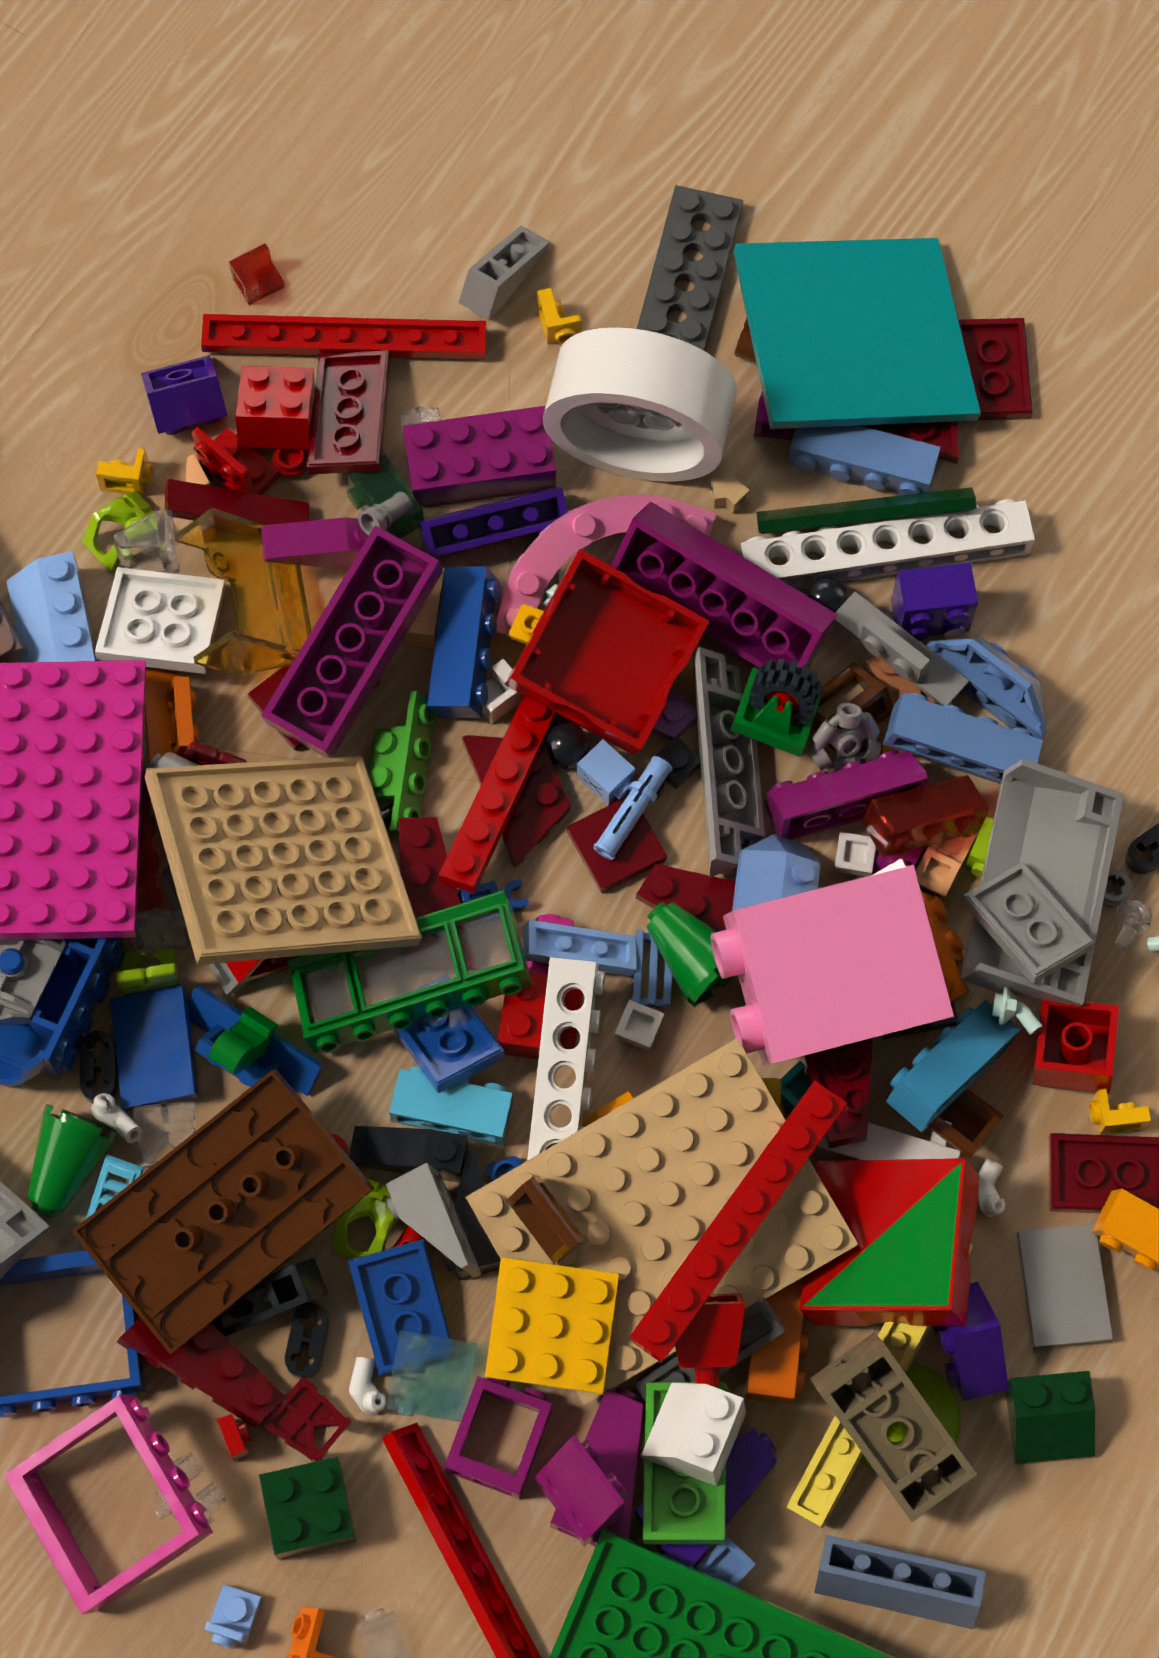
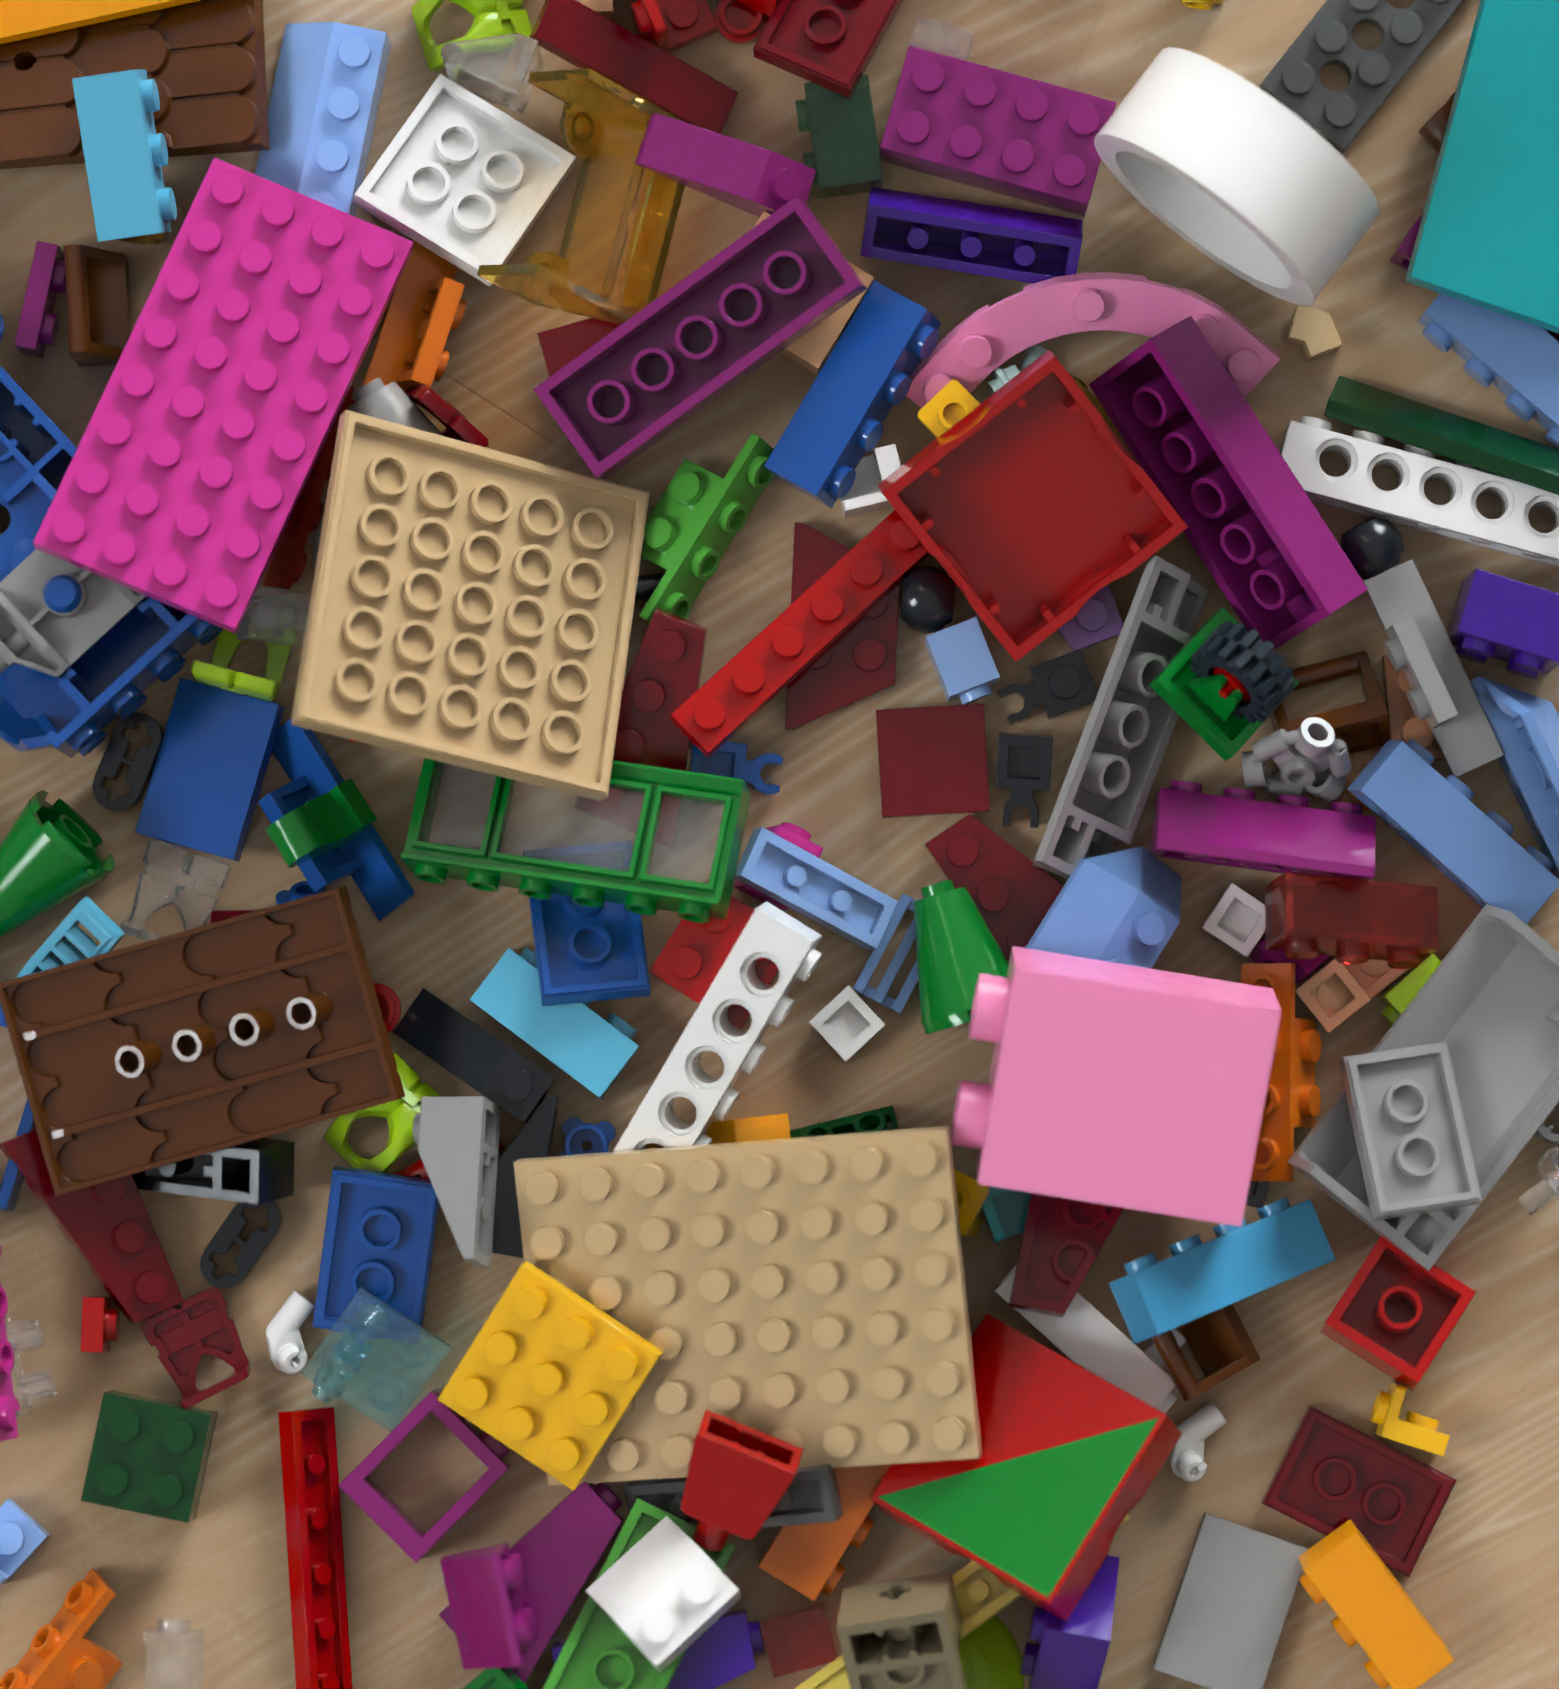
camera: 25 degrees right, 15 degrees up
(113, 1116) = (120, 839): white arm -> none
(385, 513) = (816, 172): light grey pin -> none
(546, 1219) = (600, 1247): reddish brown tile -> none
(641, 794) = (1027, 691): light blue pin -> none
(676, 820) = (1023, 766): none -> black plate
(737, 1222) = (836, 1368): red plate -> none
(795, 1432) = (798, 1640): none -> clear red panel
(1007, 1007) = (1330, 1228): light aqua plate -> none

